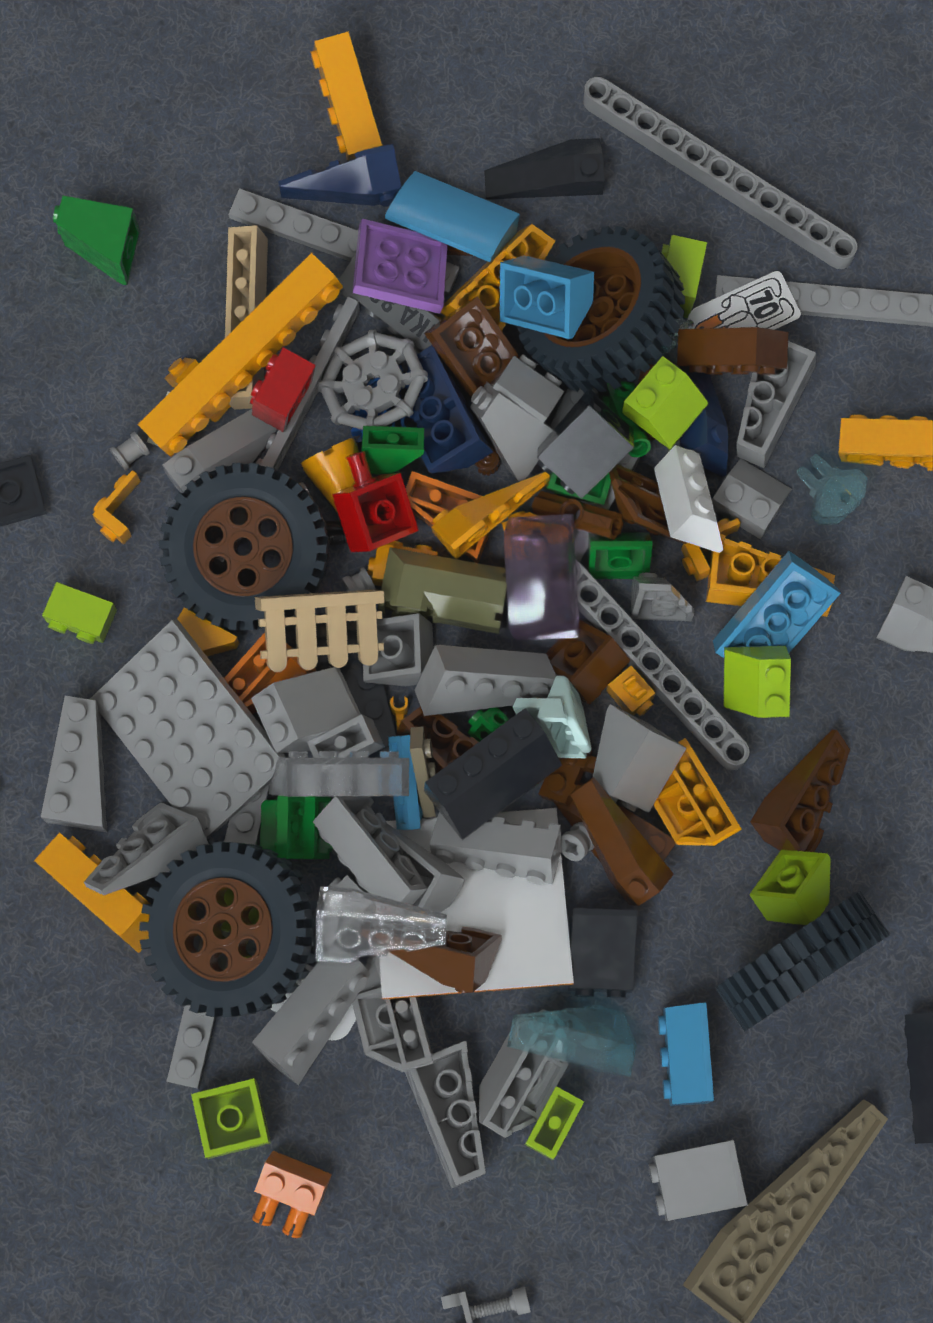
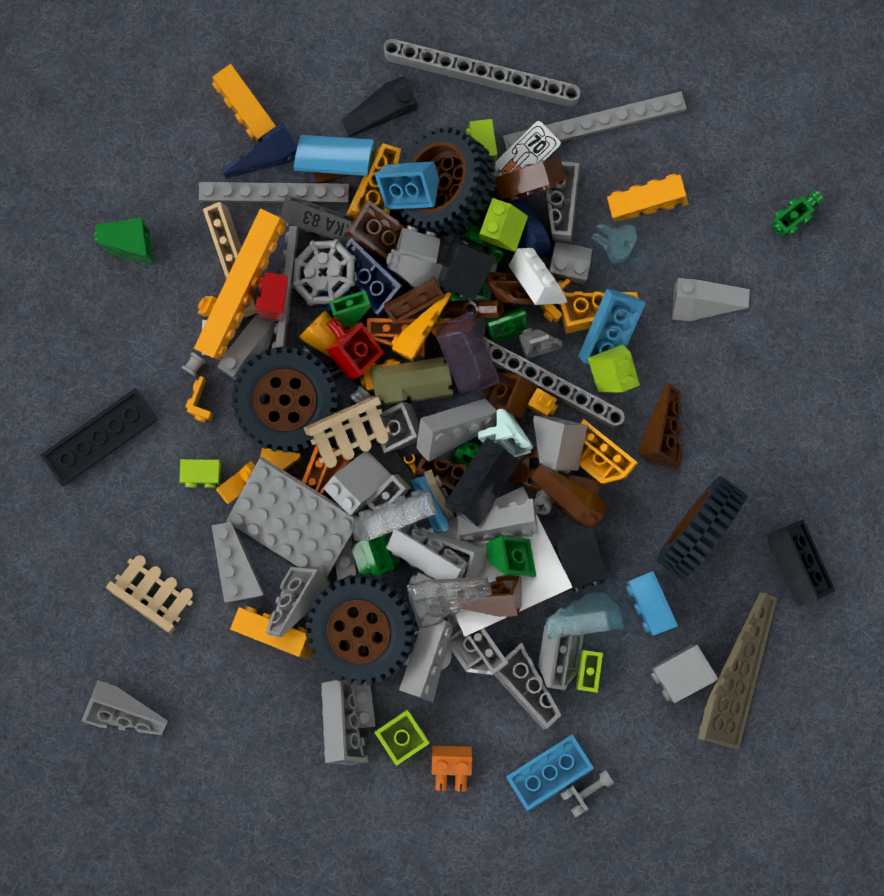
camera: 20 degrees left, 5 degrees up
(118, 651) = (233, 487): none -> light orange bracket
(145, 1066) = (341, 724): none -> light grey wedge
(400, 266) = (314, 197): medium lavender plate -> none
(437, 1260) = (550, 773): none -> dark azure slope
(490, 468) = (414, 300): none -> reddish brown container
(498, 902) = (511, 556): none -> green slope
(794, 887) = (678, 484): lime slope -> none

